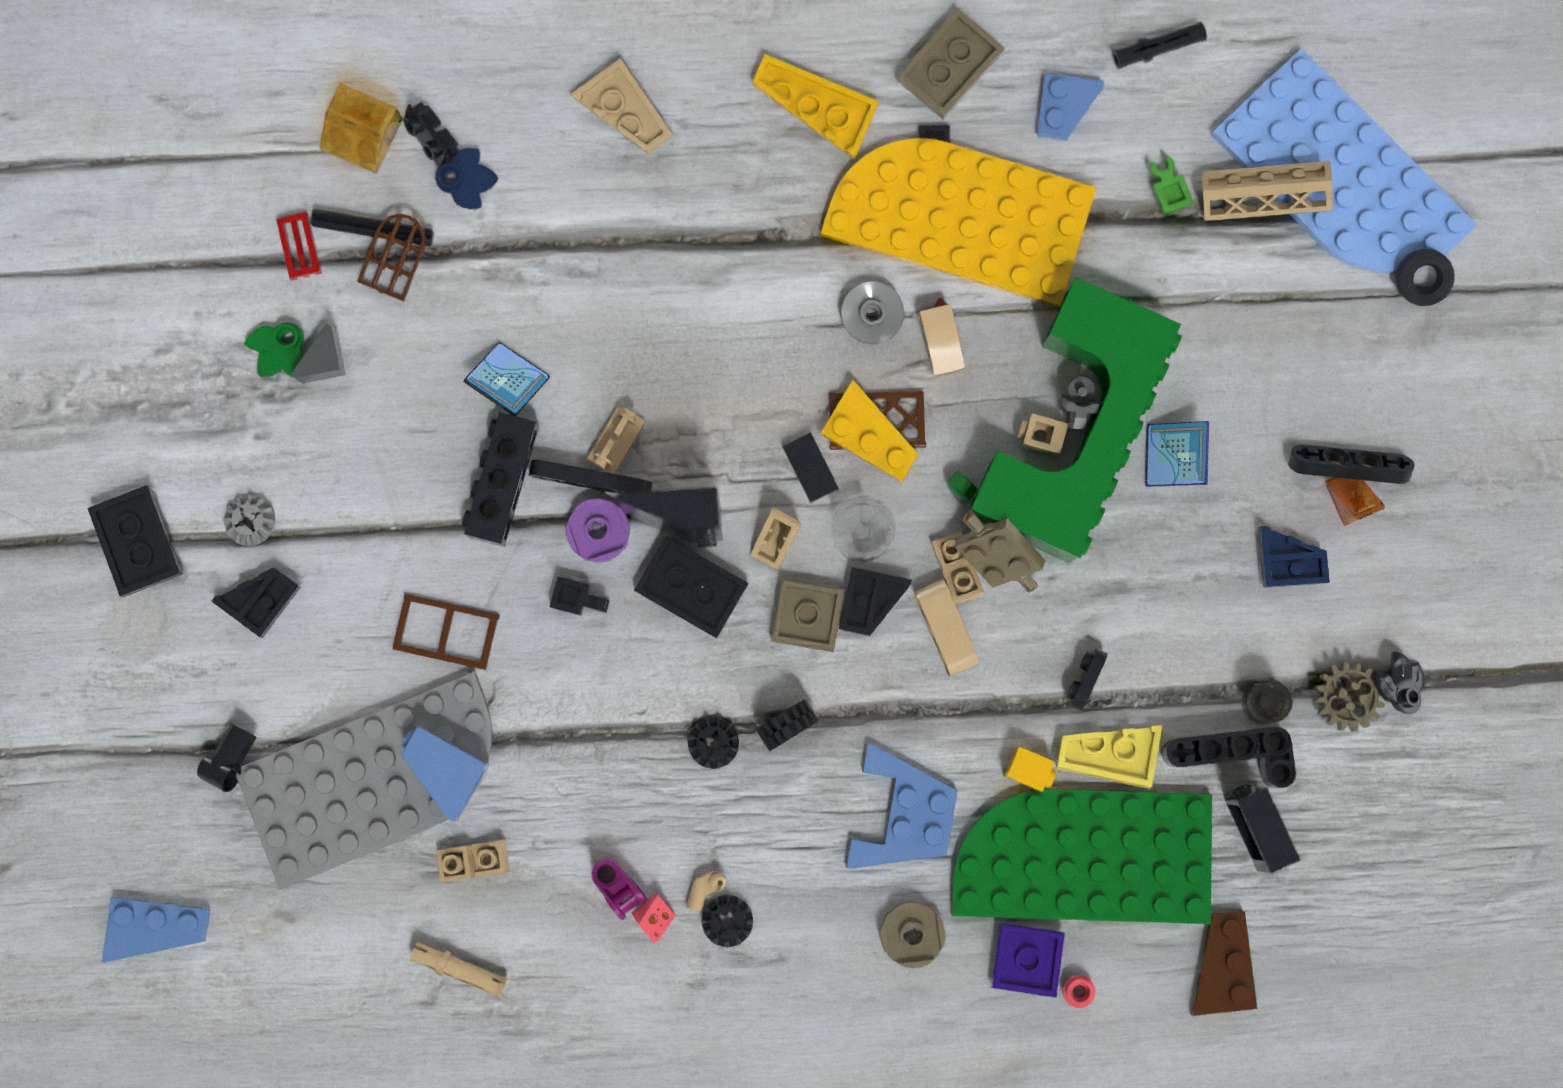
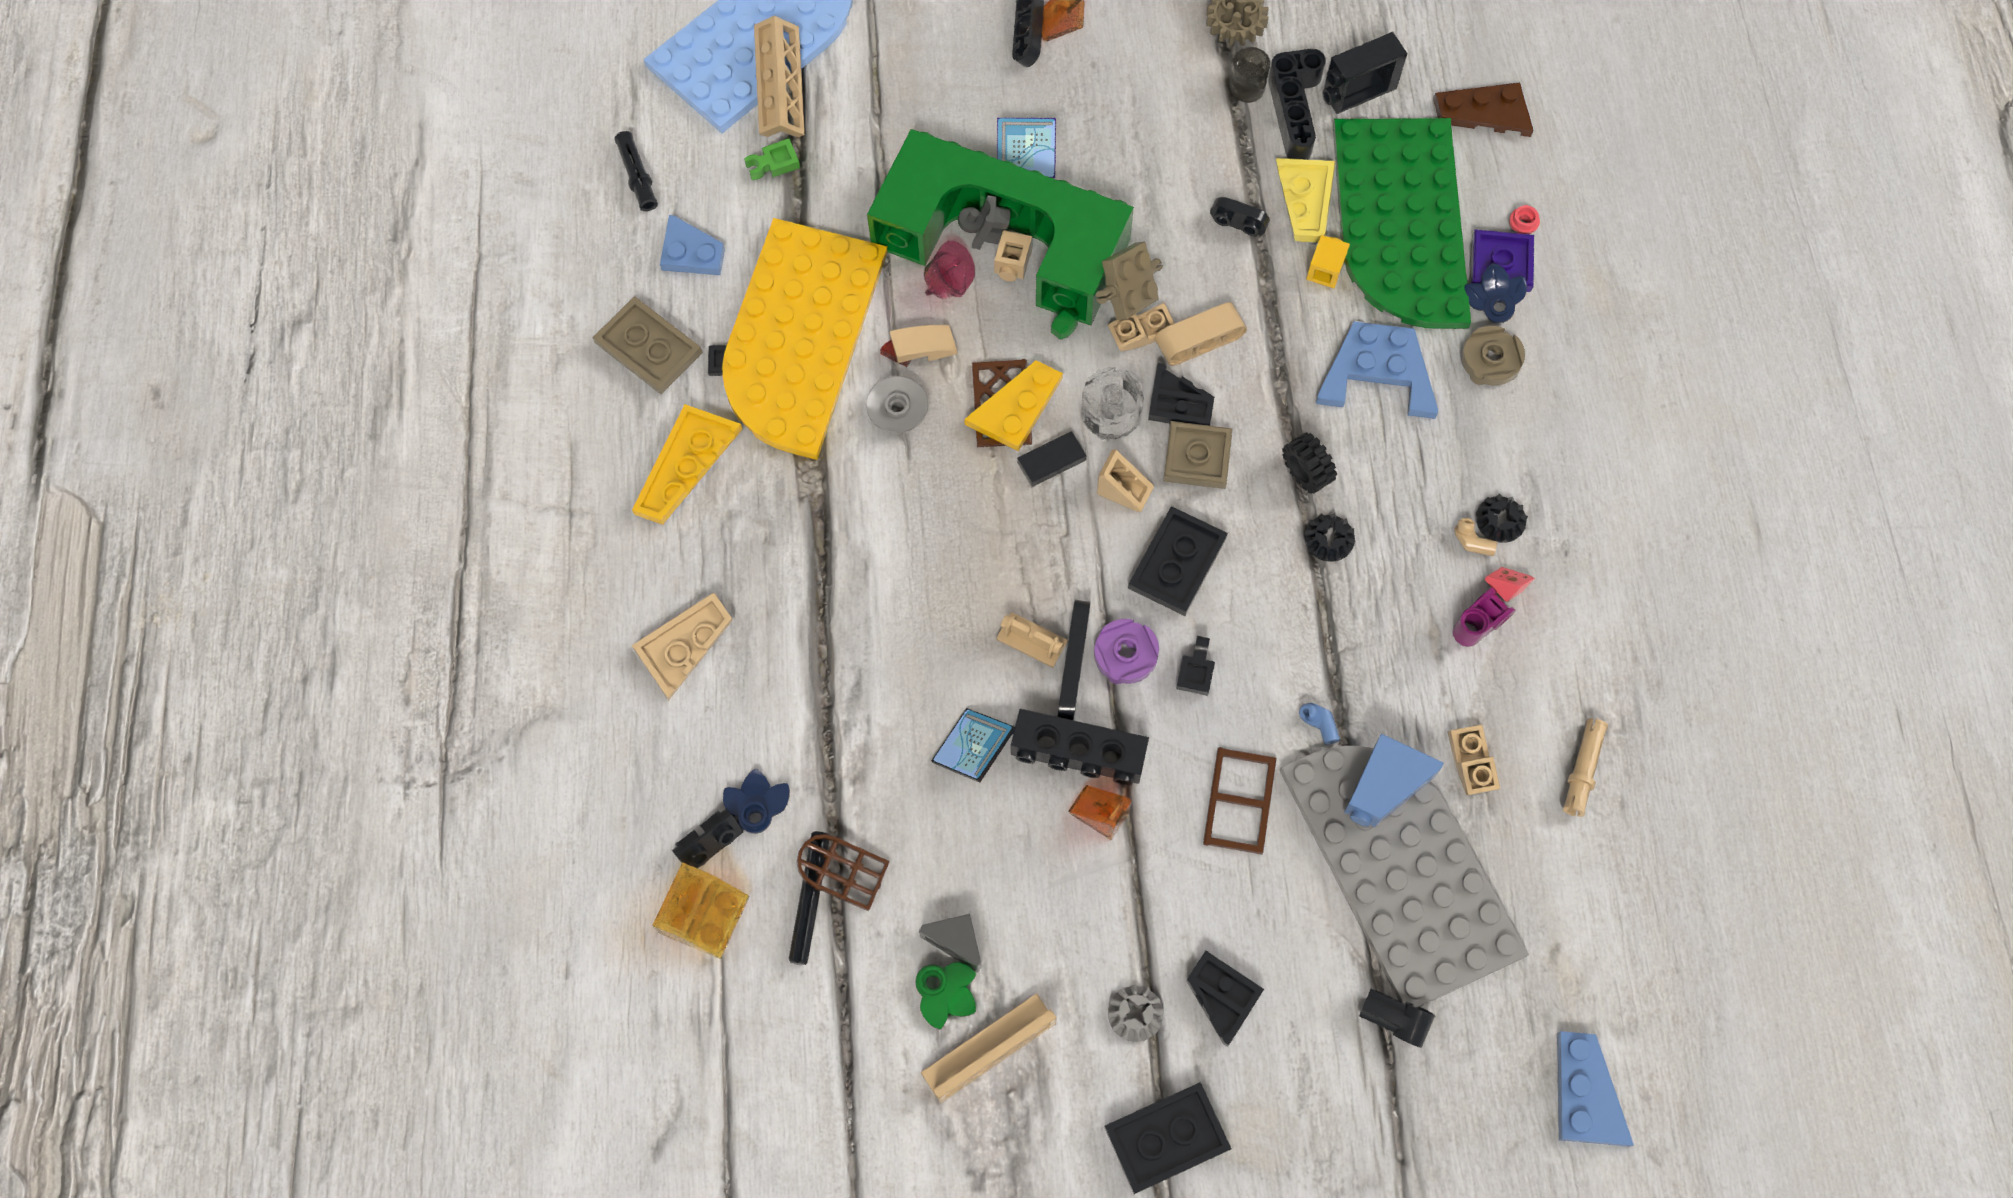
camera: 90 degrees left, 15 degrees down
(224, 386) = (988, 1048): none -> tan fence
(305, 271) = (834, 989): red tile -> none
(438, 496) = (1101, 810): none -> clear orange slope
(521, 716) = (1321, 719): none -> medium blue arm
(681, 513) = (1113, 544): black slope -> none
(989, 946) = (1494, 289): none -> dark blue plate
(1025, 370) = (949, 271): none -> clear pink piece
(1290, 561) = (1118, 62): dark blue wing -> none

